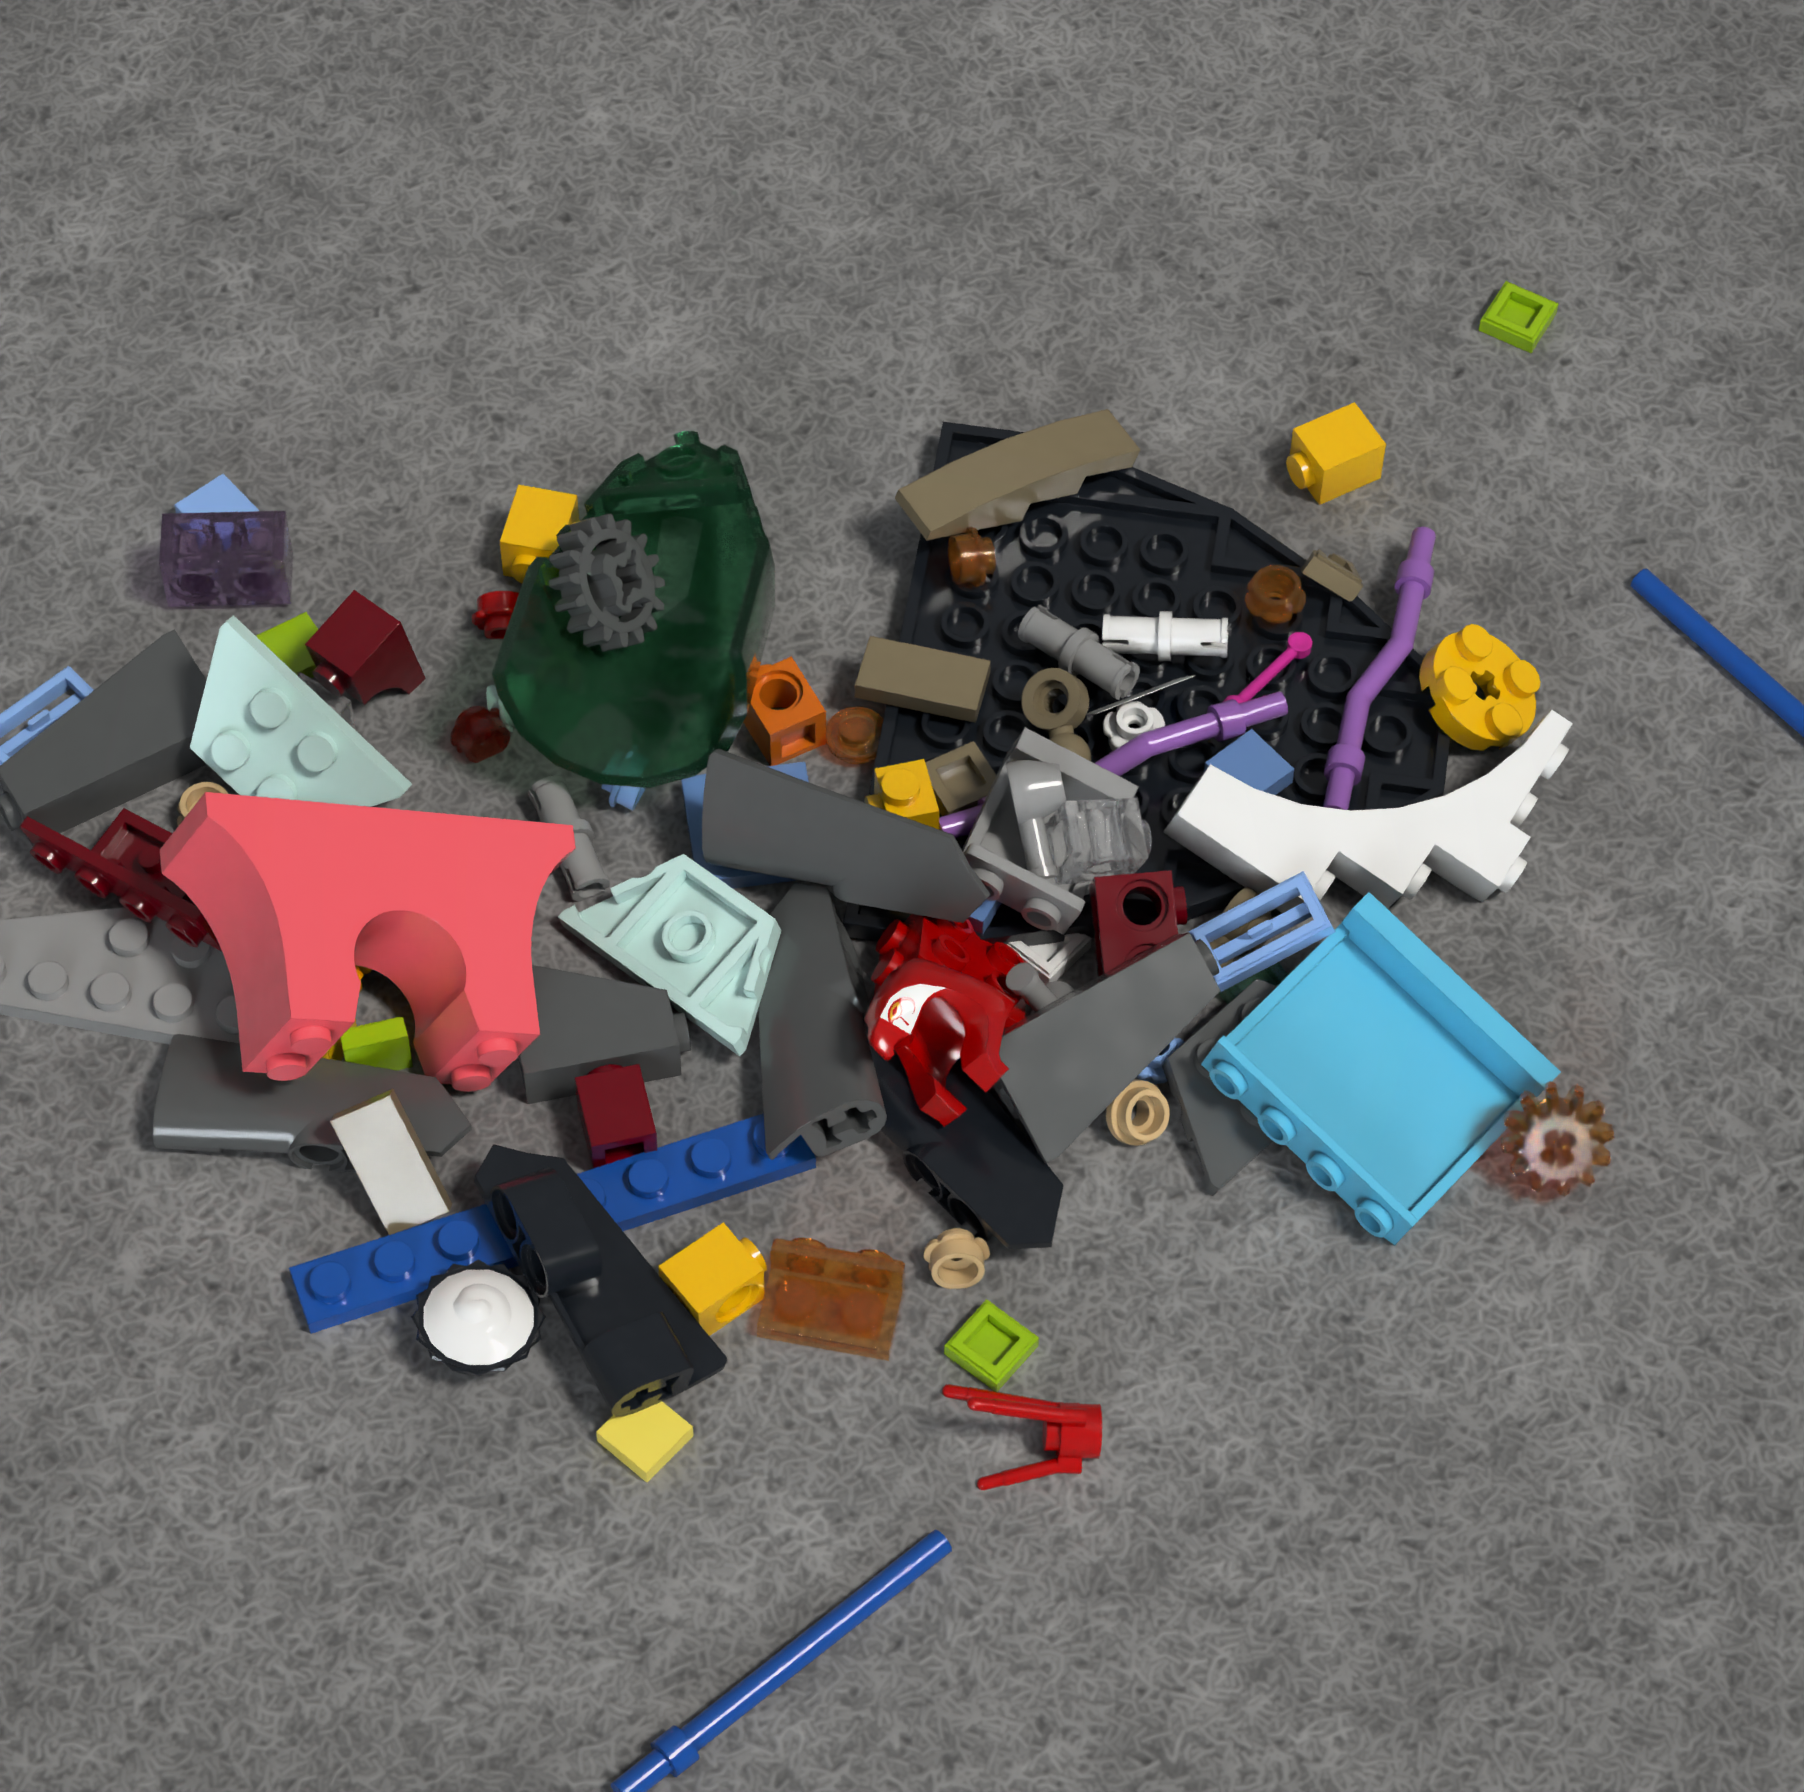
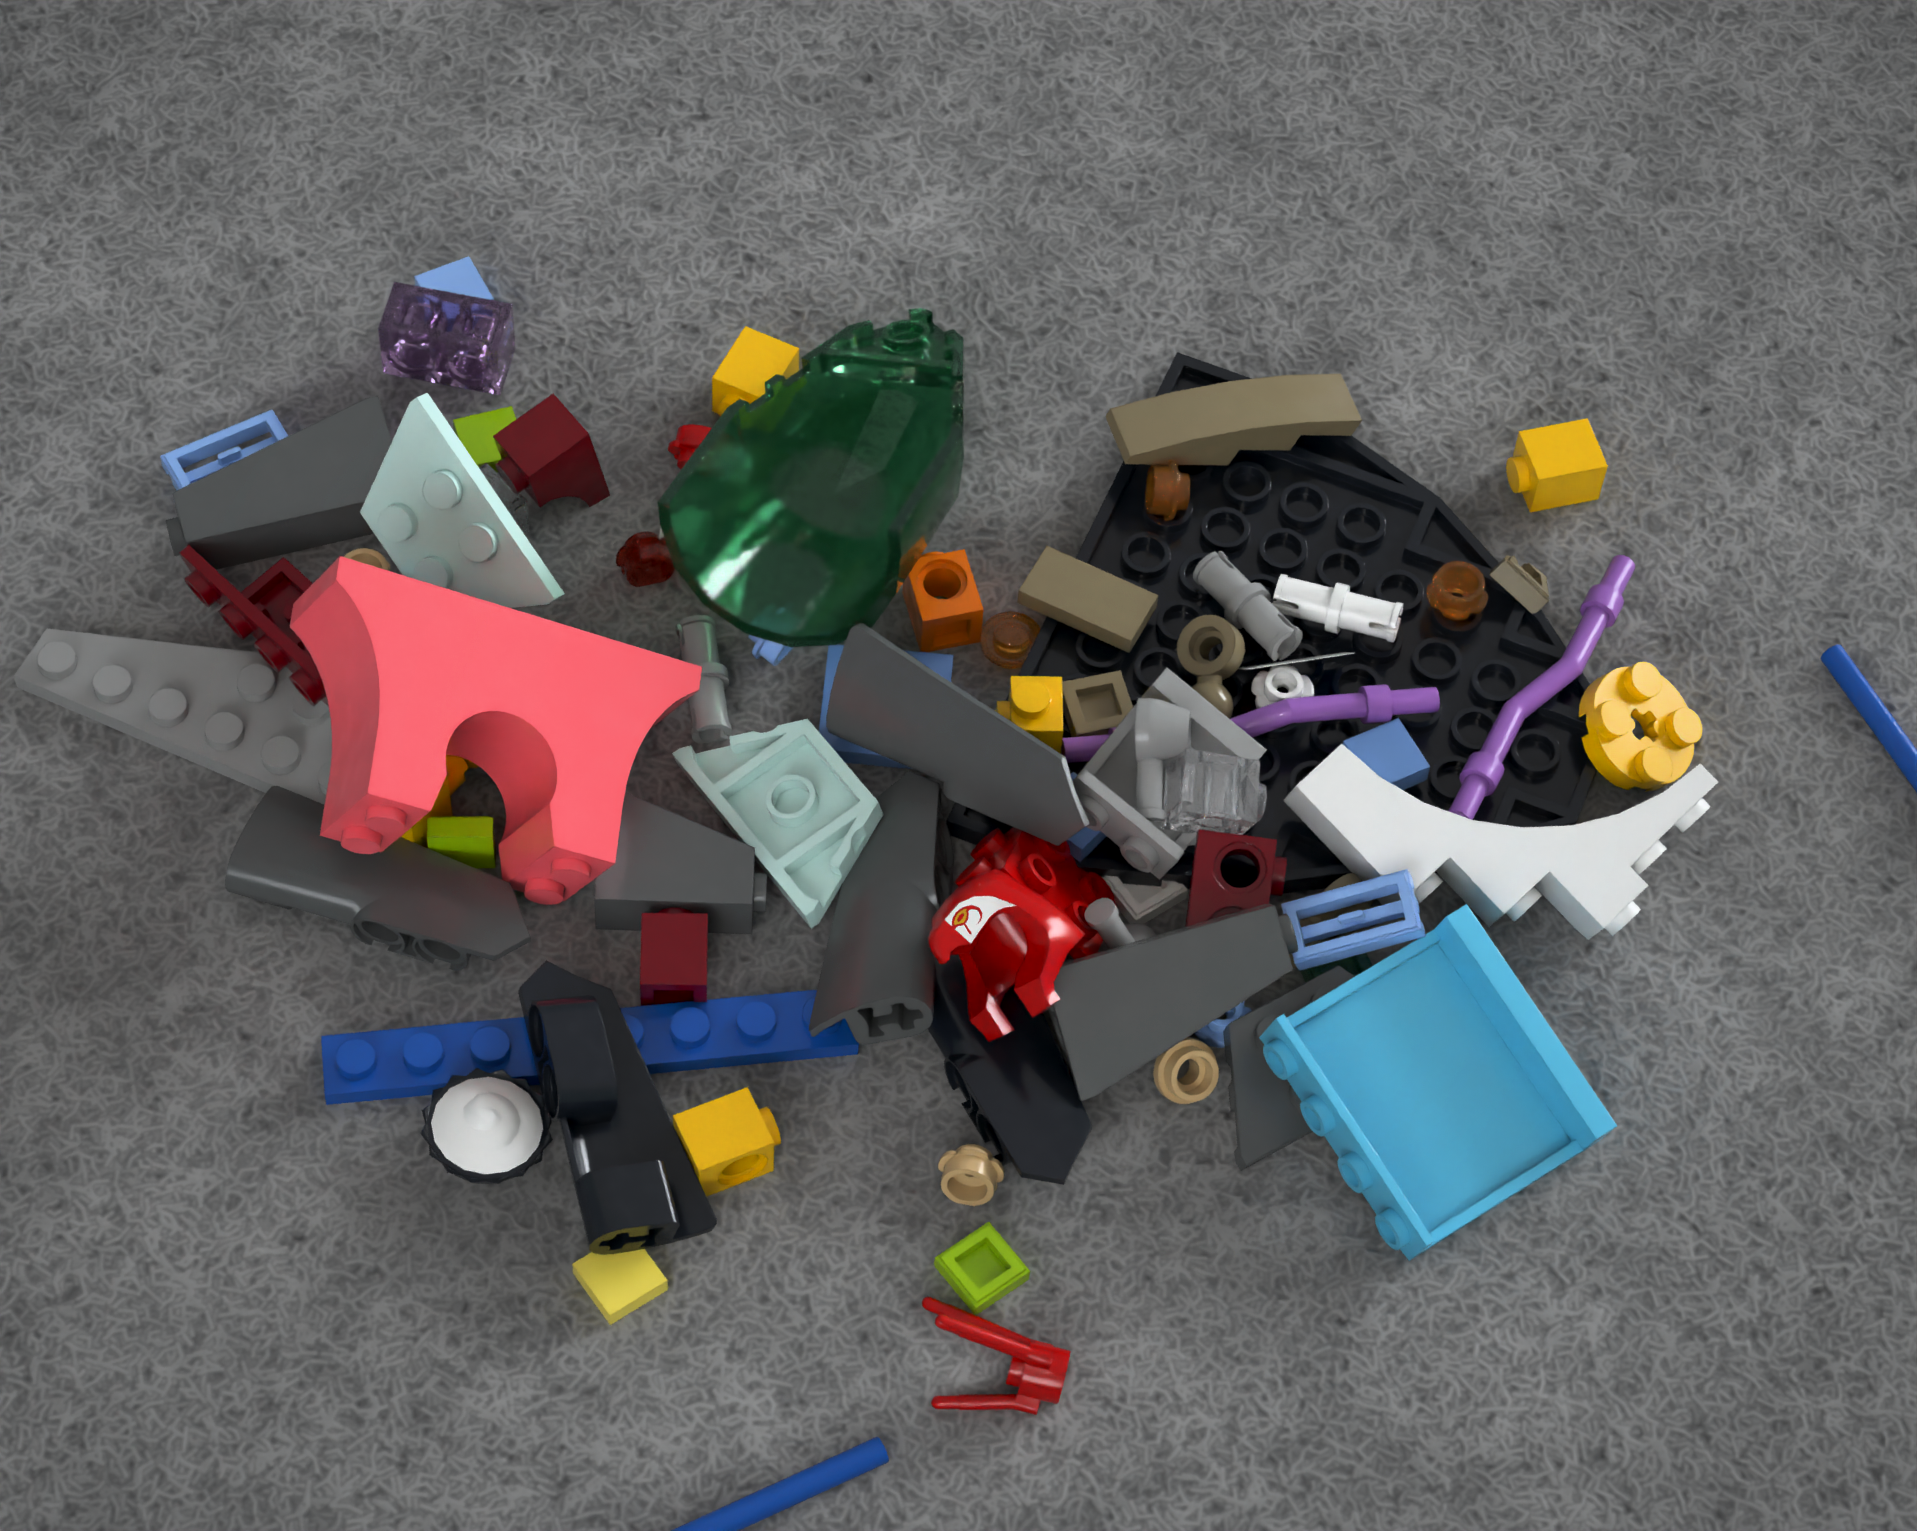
camera: 10 degrees right, 0 degrees up
(391, 1162) = (443, 956): tile -> none
(606, 583) = (802, 439): dark grey gear -> none
(832, 1298) = (837, 1186): clear orange bracket -> none
(1298, 647) = (1468, 647): dark pink hinge -> none
(1518, 317) = (1778, 369): lime tile -> none
(1552, 1162) = (1587, 1214): clear orange gear -> none

